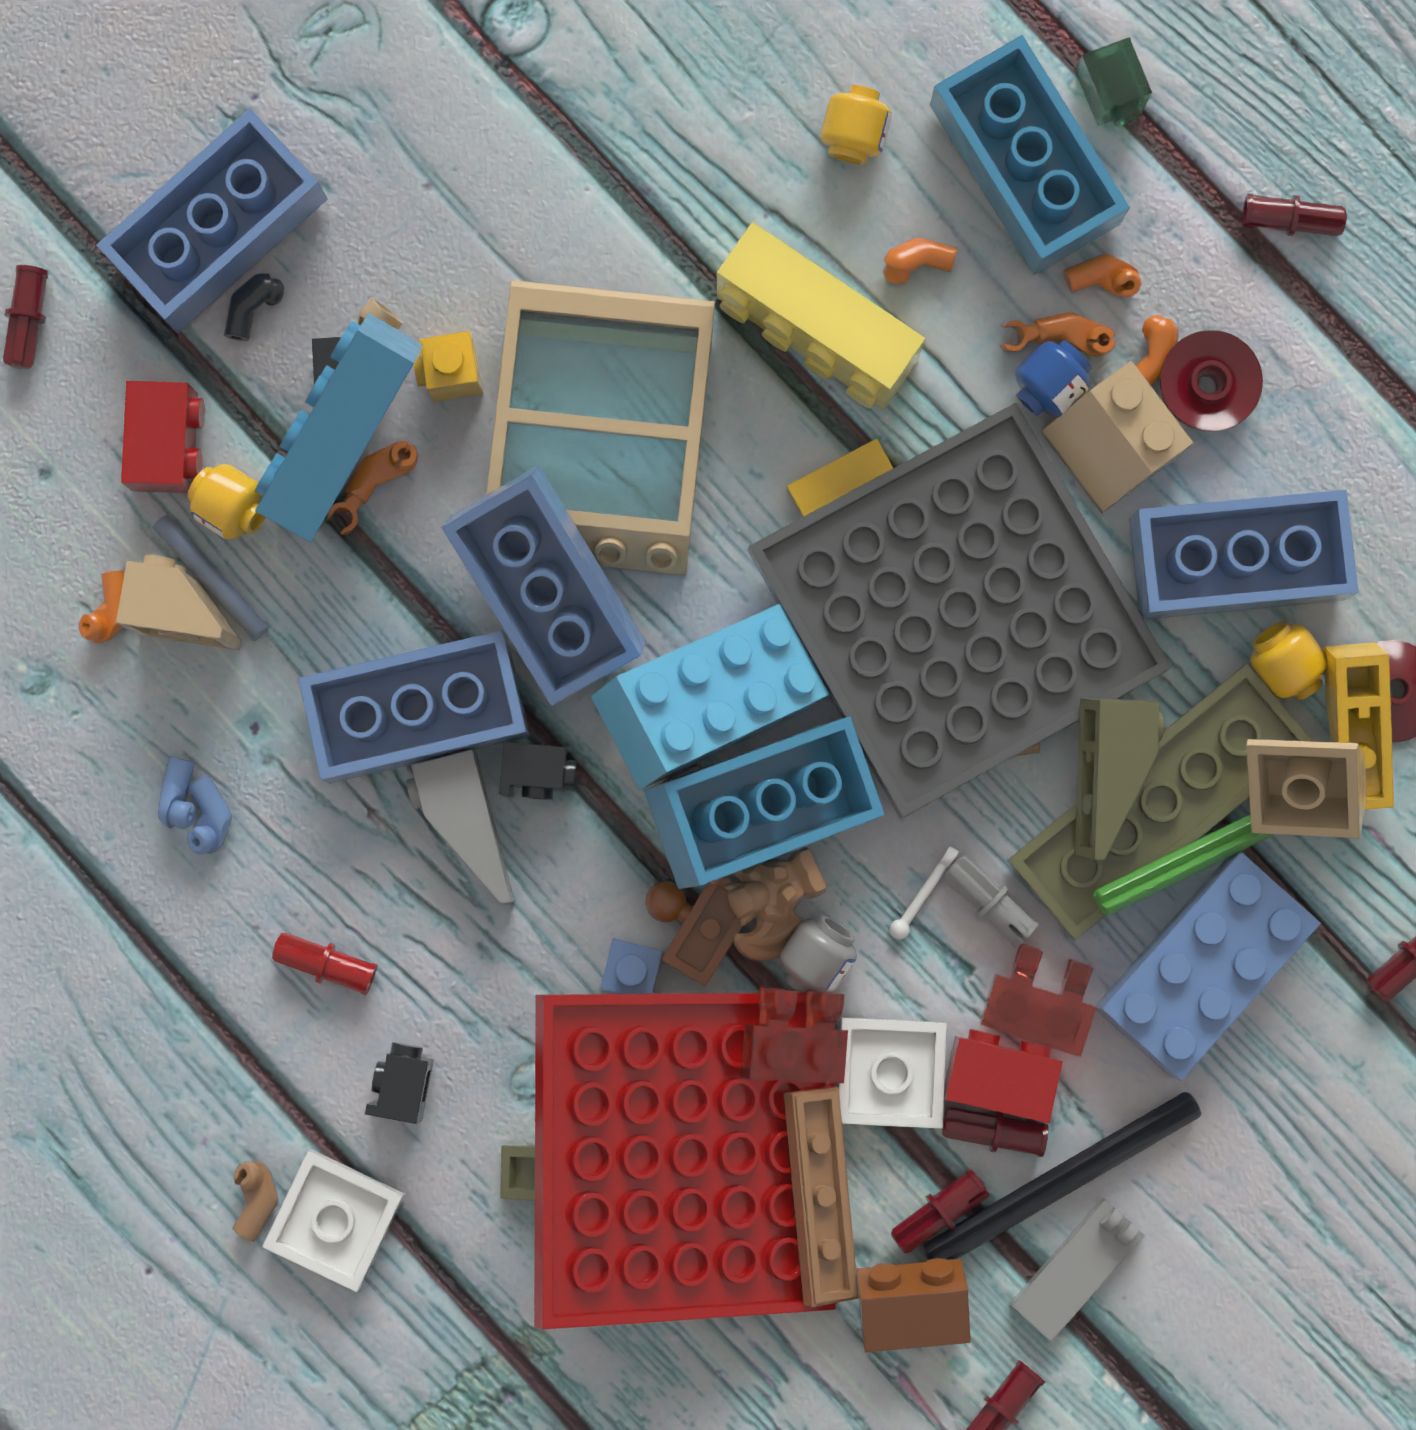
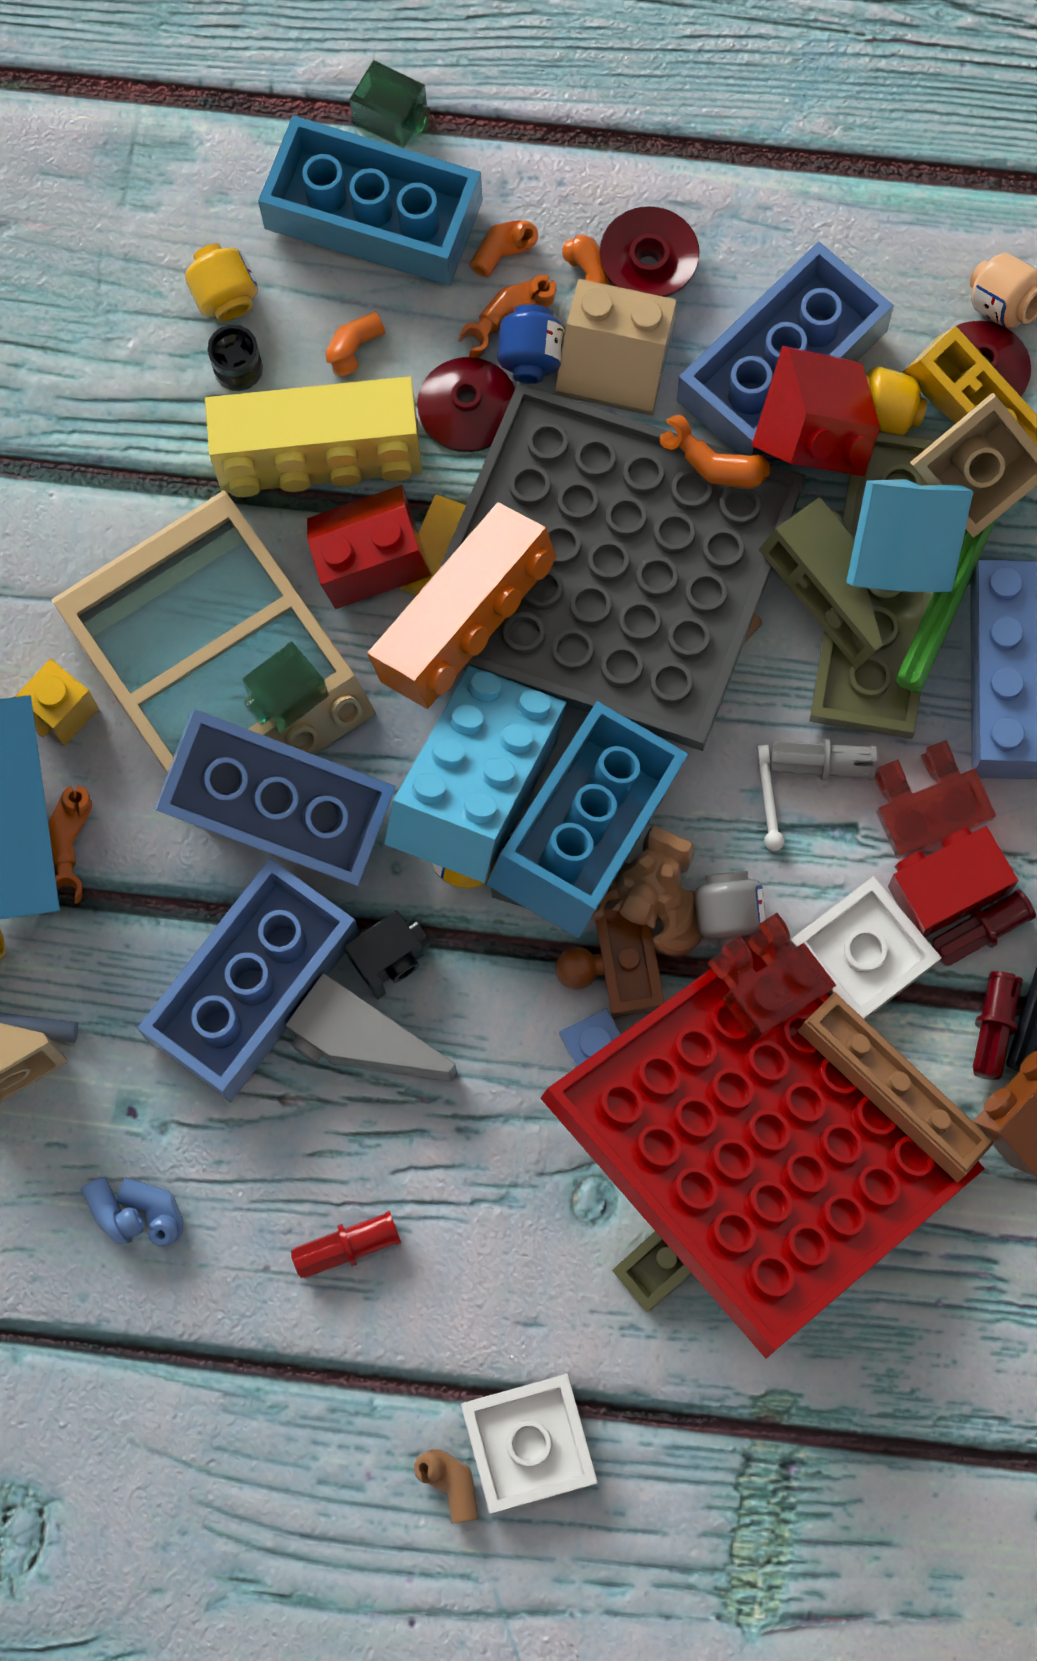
camera: 40 degrees left, 10 degrees down
(401, 1084) = (490, 1286): black brick -> none
(621, 505) = (283, 688): none -> clear green brick
(786, 437) = (366, 547): none -> red slope
(811, 557) = (462, 605): none -> brick
(812, 187) = (230, 347): none -> black wheel
(943, 396) = (461, 424): none -> dark red dish
(1103, 603) = (715, 468): none -> orange arm
(1197, 795) = (909, 536): none -> medium azure slope
(1219, 633) = (818, 413): none -> red slope
(1293, 215) = (604, 94): dark red axle -> none

